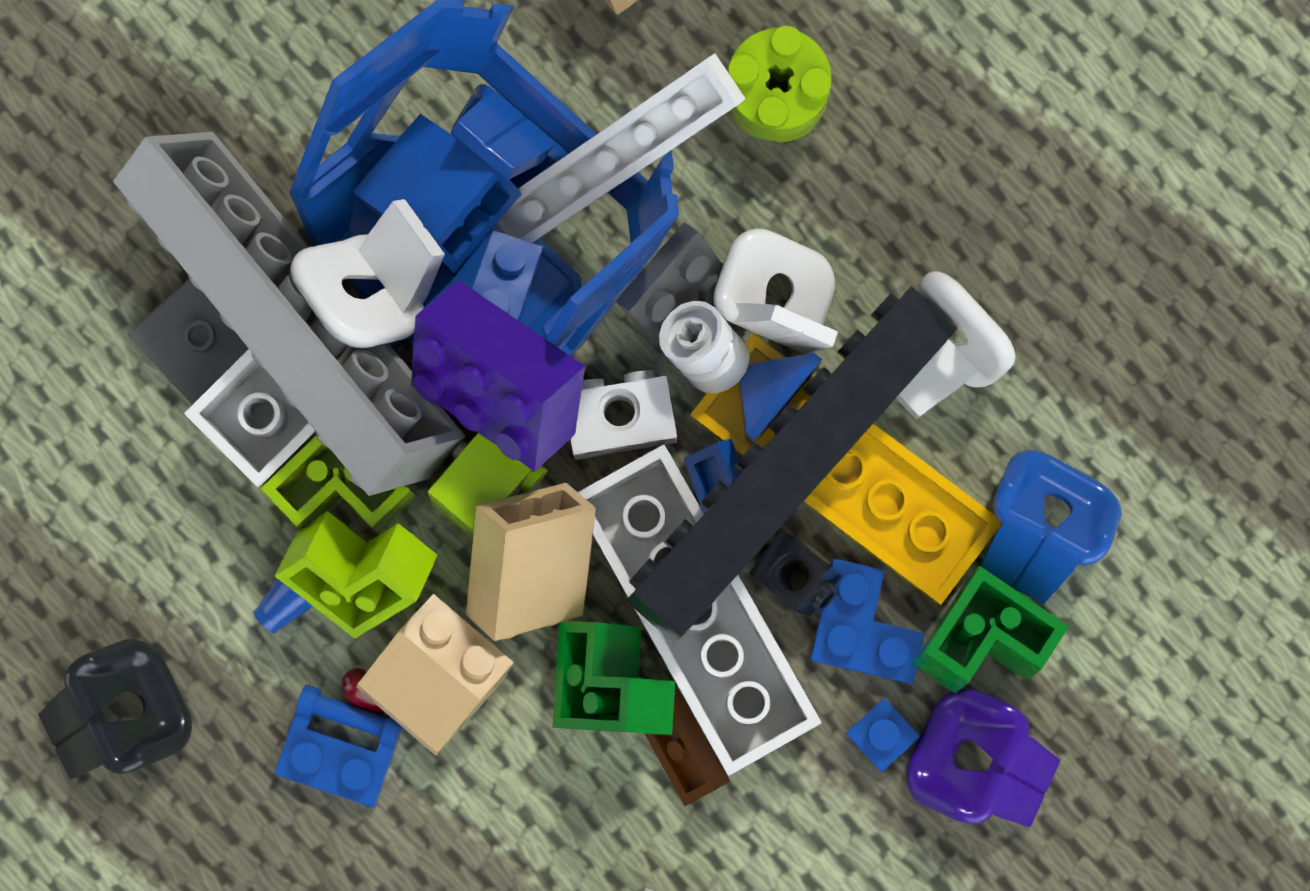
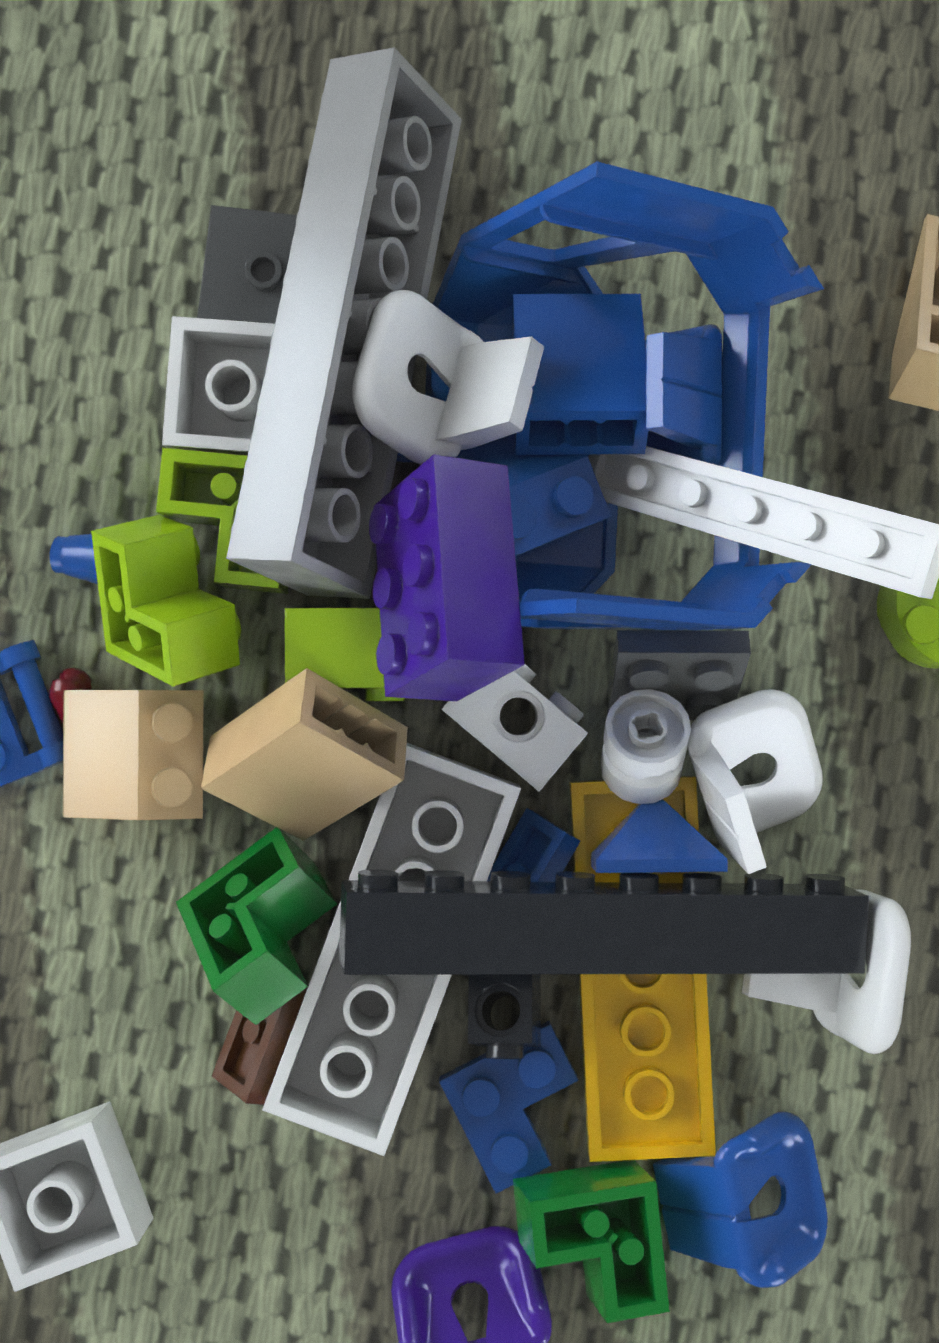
camera: 50 degrees right, 5 degrees up
(882, 734) = (426, 1201): blue plate -> none

